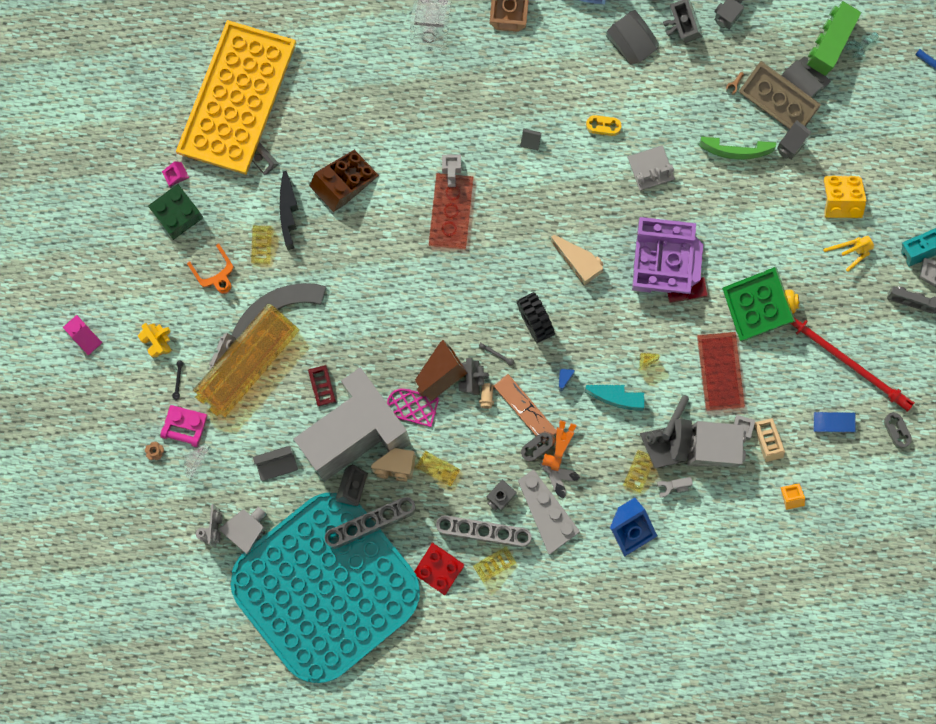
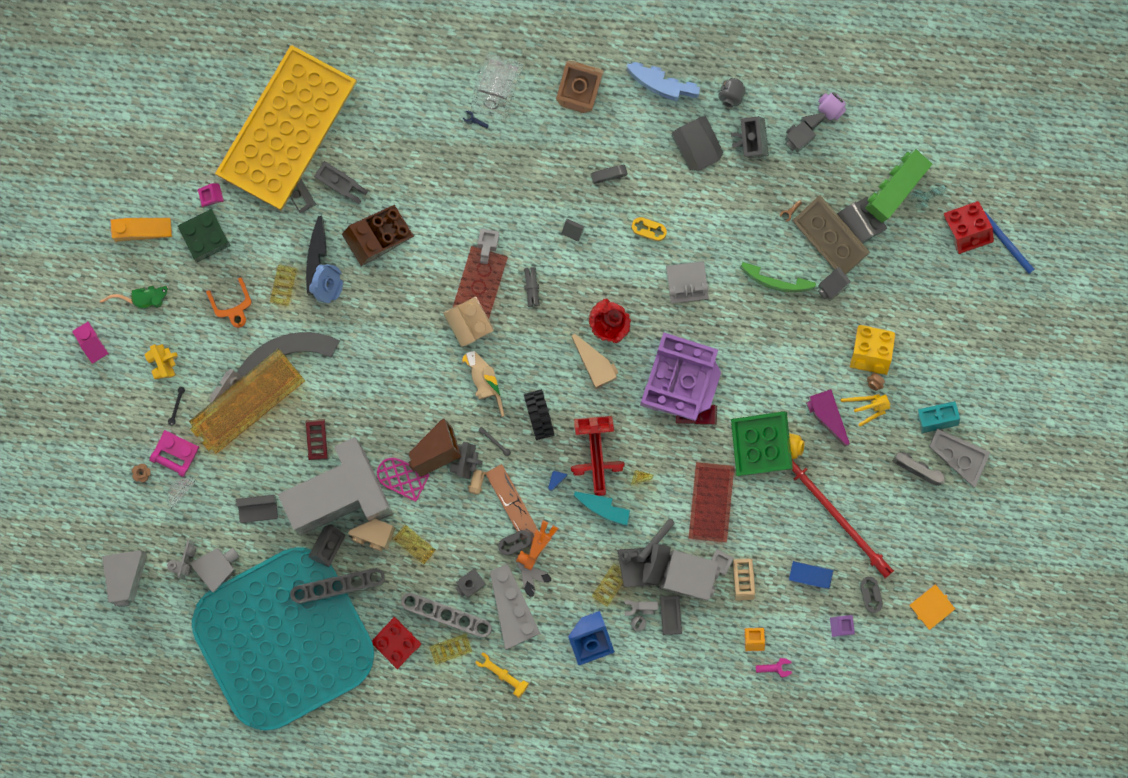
camera: 10 degrees right, 5 degrees up
(112, 217) = (140, 228): none -> light orange slope
(127, 282) = (144, 298): none -> green animal
(154, 554) = (123, 576): none -> light grey slope
(297, 138) = (339, 181): none -> dark grey hinge
(299, 225) = (323, 275): none -> medium blue plate
(415, 57) = (475, 120): none -> dark blue hand
(448, 243) = (468, 321): none -> tan brick
(474, 295) = (483, 378): none -> tan animal
(502, 200) = (531, 287): none -> dark grey pin
(552, 580) = (503, 675): none -> yellow piece
(554, 81) = (609, 174): none -> dark grey beam
(581, 219) = (609, 321): none -> red hair
(592, 321) = (594, 427): none -> red piece
(671, 500) = (642, 625): none -> light grey hinge
(705, 488) = (671, 615): none -> dark grey tile
(813, 263) = (827, 413): none -> magenta slope
(819, 520) = (775, 668): none -> dark pink bar
(854, 225) = (875, 382): none -> medium nougat plate
(875, 466) = (842, 625): none -> medium lavender slope
(910, 65) = (969, 227): none -> red bracket

